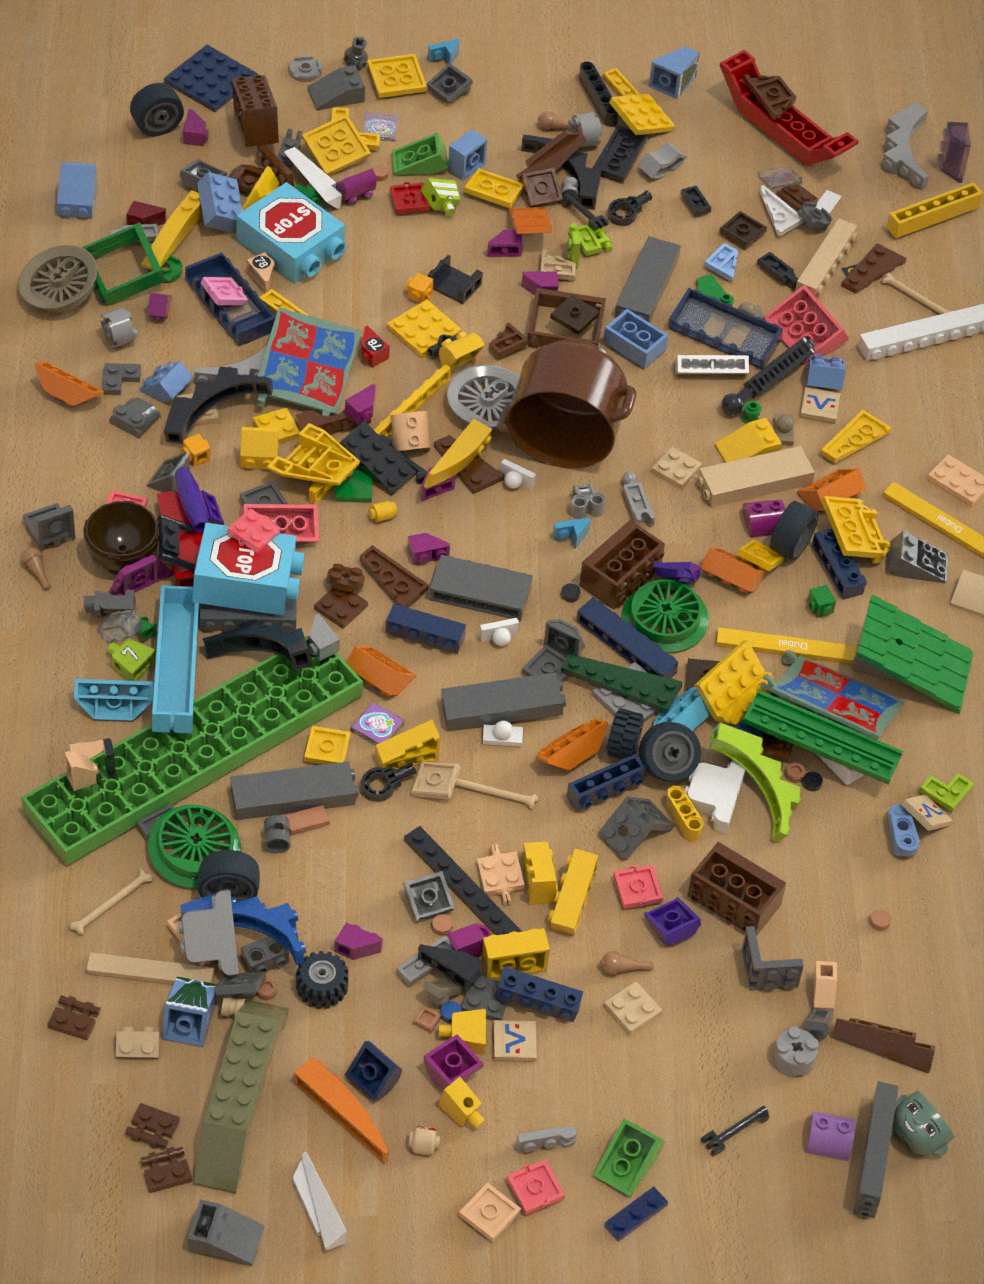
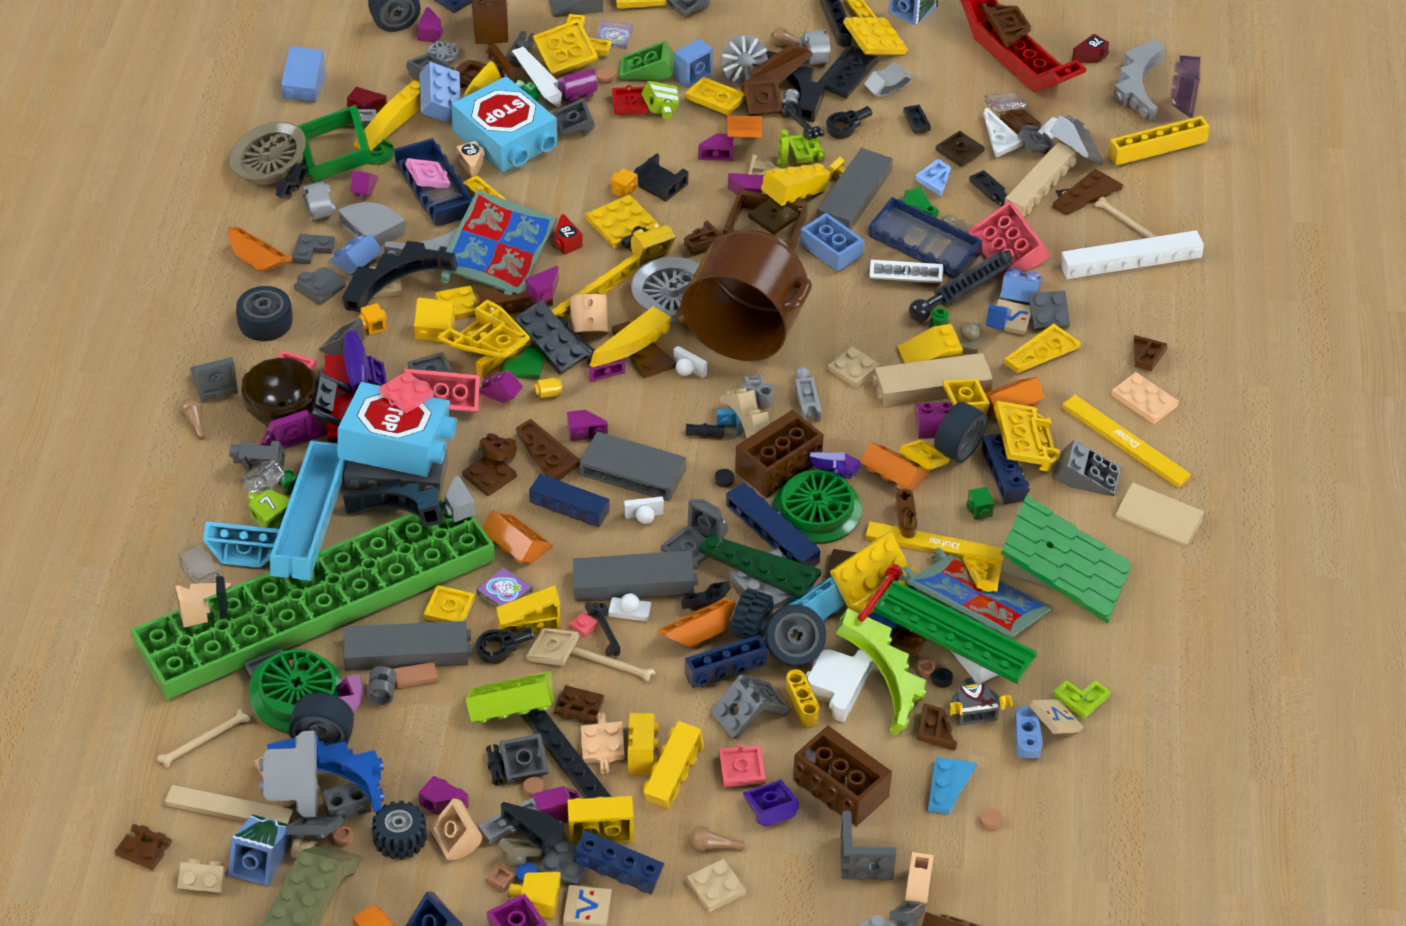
camera: 10 degrees right, 5 degrees down
(73, 725) = (199, 565): none -> clear brick
(82, 314) = (286, 186): none -> black plate
(86, 452) = (264, 313): none -> black wheel
(175, 345) = (373, 219): none -> light grey brick
(213, 156) = (444, 52): none -> light grey wheel
(249, 842) = (351, 691): none -> magenta brick
(337, 513) = (501, 386): none -> magenta slope
(359, 221) = (574, 118): none -> dark grey slope
(377, 976) = (456, 831): none -> light nougat brick
(401, 905) = (495, 764): none -> black pin
(406, 836) = (510, 697): none -> lime slope
(461, 755) = (584, 624): none -> coral plate
(471, 832) = (580, 700): none -> reddish brown plate
(474, 738) = (600, 611): none -> black hinge
(518, 142) = (745, 52): none -> light grey piece
(543, 544) = (704, 430): none -> black pin
(582, 518) = (745, 406): none -> tan arch
(582, 714) = (712, 594): none -> black plate
(590, 278) = (795, 182): none -> yellow wedge
(626, 260) = (836, 168): none -> yellow tile
(751, 607) = (906, 513): none -> reddish brown beam
(753, 683) = (892, 573): none -> red piece
(793, 488) = (966, 391): none -> yellow slope
(809, 407) = (997, 317): none -> blue slope
(814, 833) = (935, 727): none -> reddish brown wing
(834, 887) = (948, 782): none -> dark azure wing
(837, 671) = (984, 571): none -> yellow wing
(850, 805) = (977, 703): none -> torso
(854, 116) = (1091, 50): none -> dark red slope
(856, 211) = (1077, 137): none -> slope
(856, 395) = (1049, 309): none -> dark grey plate
(955, 433) = (1147, 352): none -> reddish brown wing

